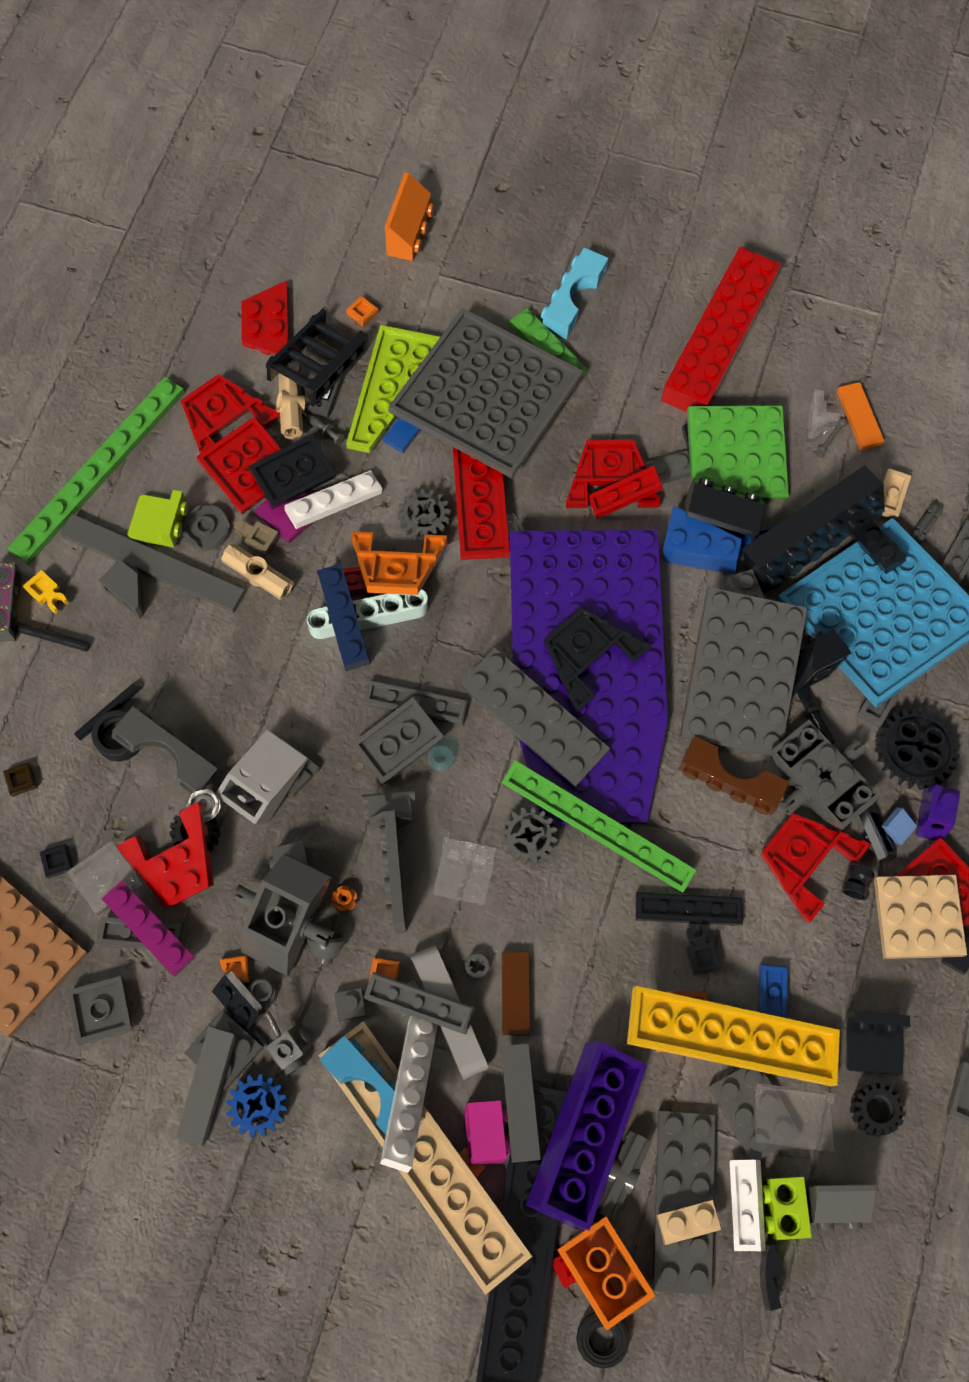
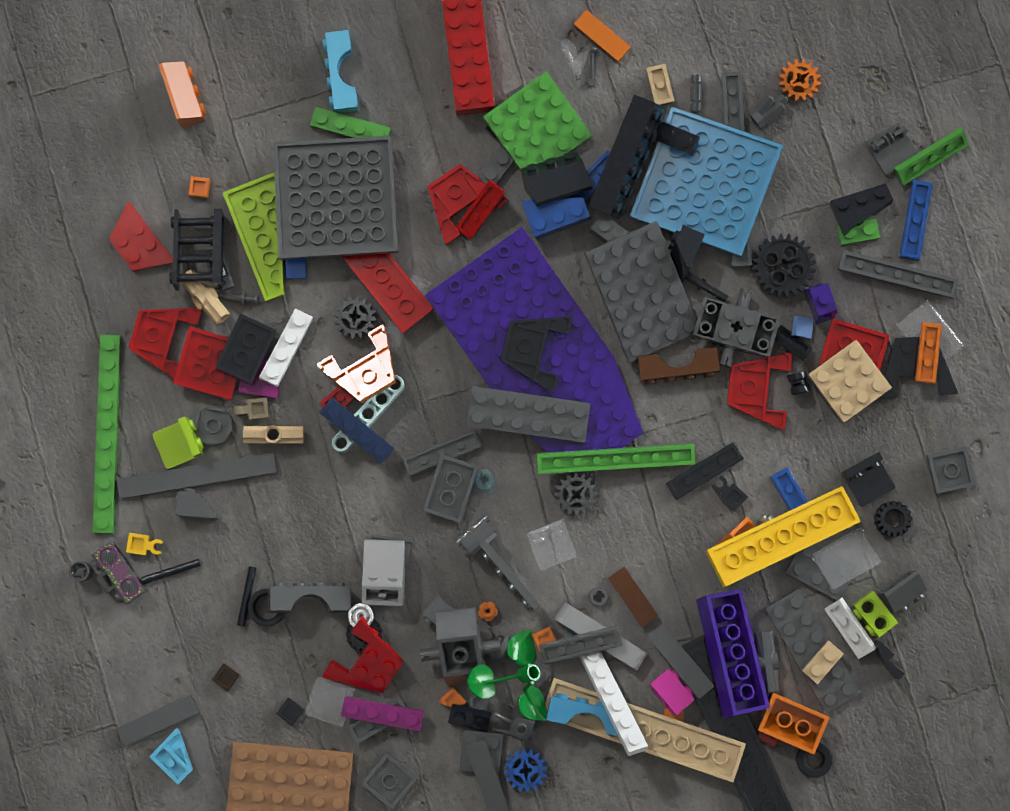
camera: 30 degrees left, 15 degrees up
(351, 965) = (521, 649): none -> green plant

